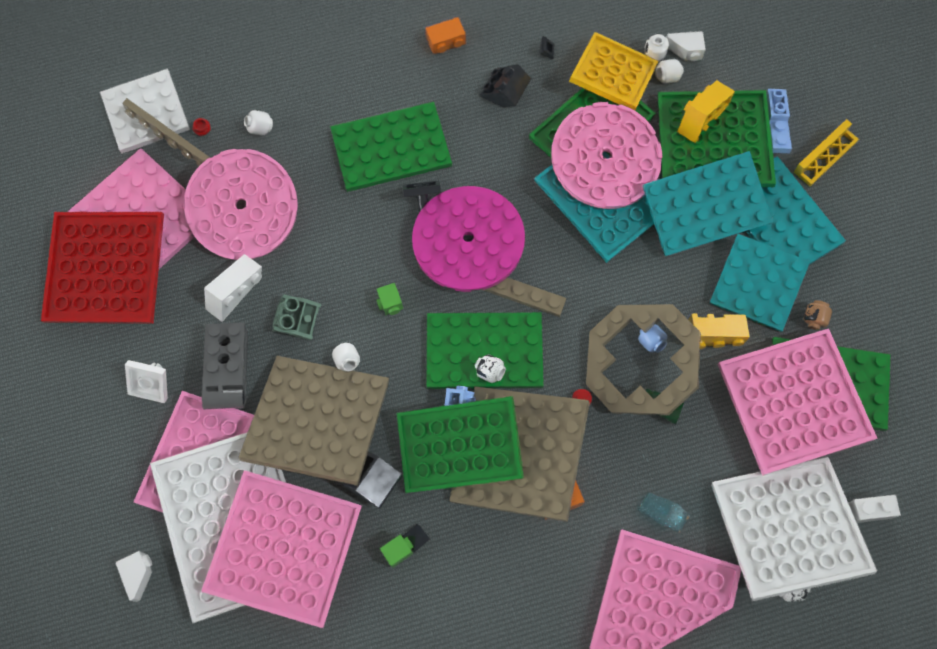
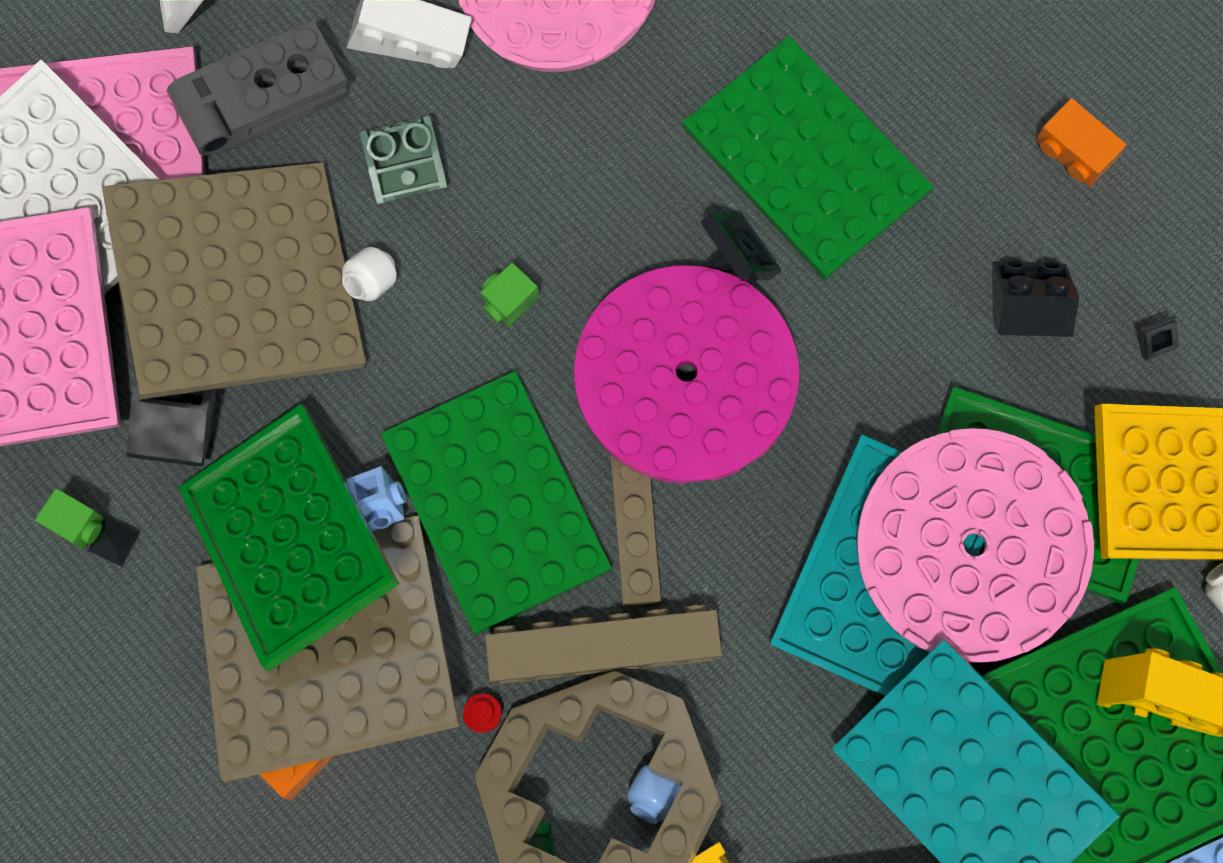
camera: 65 degrees right, 5 degrees up
(490, 368) = (453, 524): white head -> none
(576, 331) = (603, 646): none -> dark tan brick

